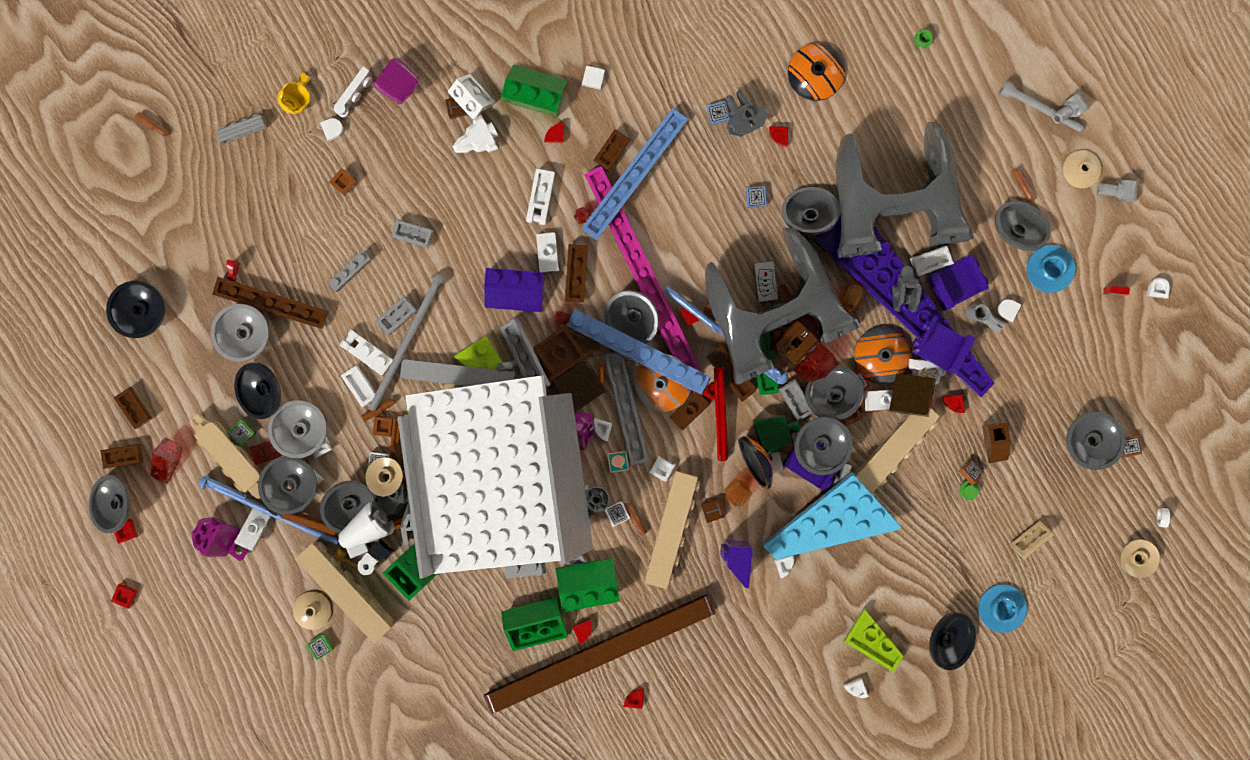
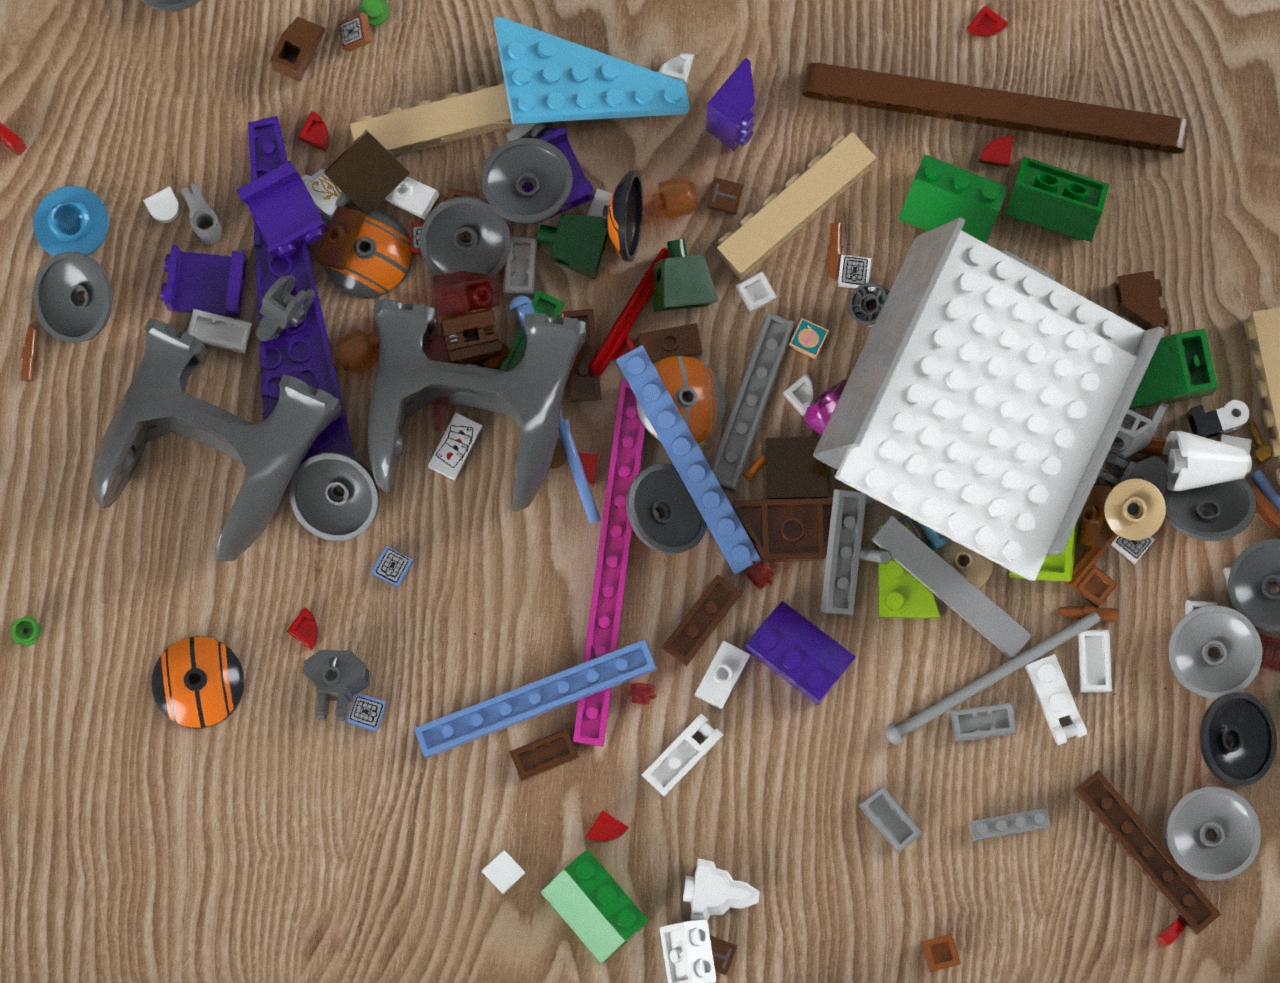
camera: 145 degrees left, 10 degrees down
(455, 596) = (1139, 299): none -> reddish brown slope
(704, 447) = (682, 280): none -> dark green torso
(902, 351) = (340, 238): none -> reddish brown plate

